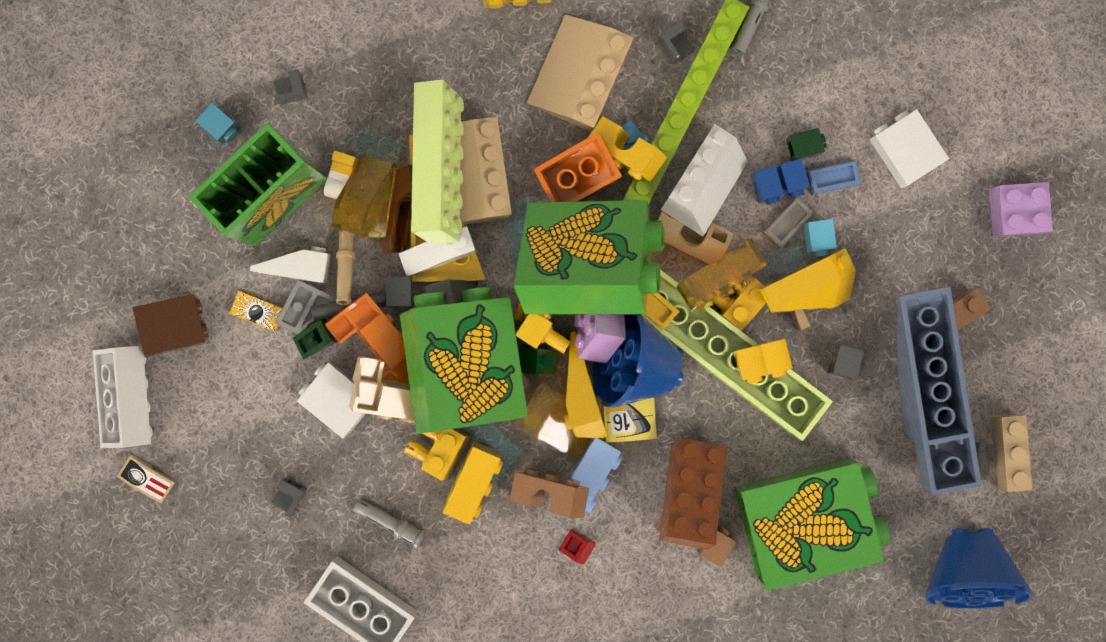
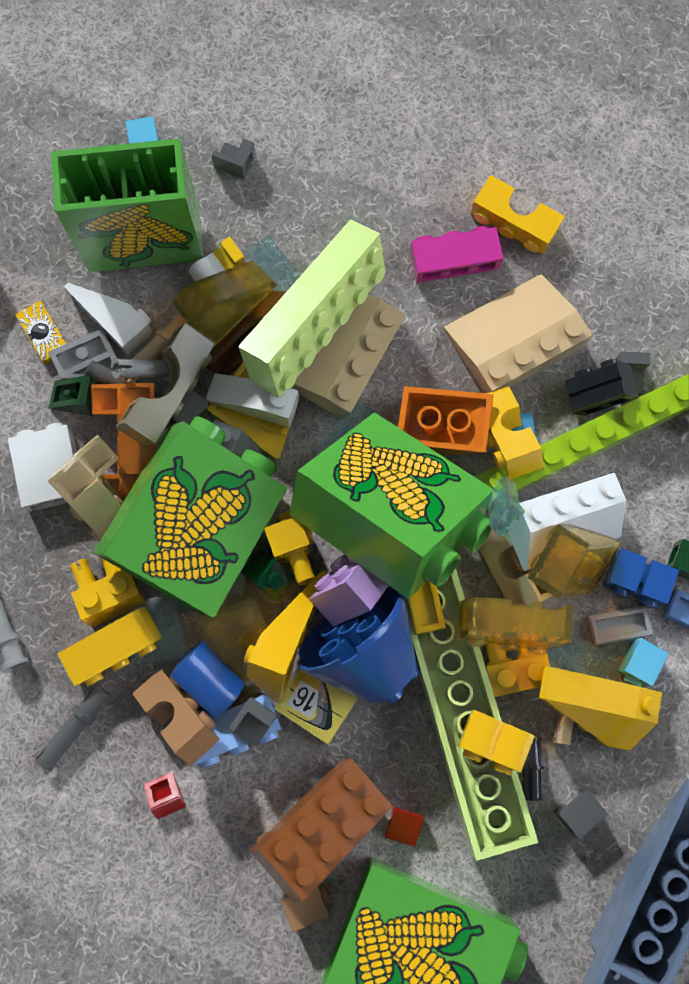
camera: 35 degrees right, 10 degrees down
(365, 274) = (141, 369): none -> light grey pin
(373, 258) = (185, 355): none -> dark tan arch
(487, 548) = (81, 716): none -> dark grey pin
(497, 45) = (456, 254): none -> dark pink brick
(551, 456) = (208, 679): none -> blue brick
(601, 461) = (252, 721): none -> dark grey panel
(661, 205) = (504, 506): none -> clear light blue plate
(665, 70) = (601, 388): none -> black brick
(729, 206) = (572, 560): none -> clear yellow slope
(742, 452) = (404, 826): none -> red slope
(798, 359) = (532, 772): none -> black axle

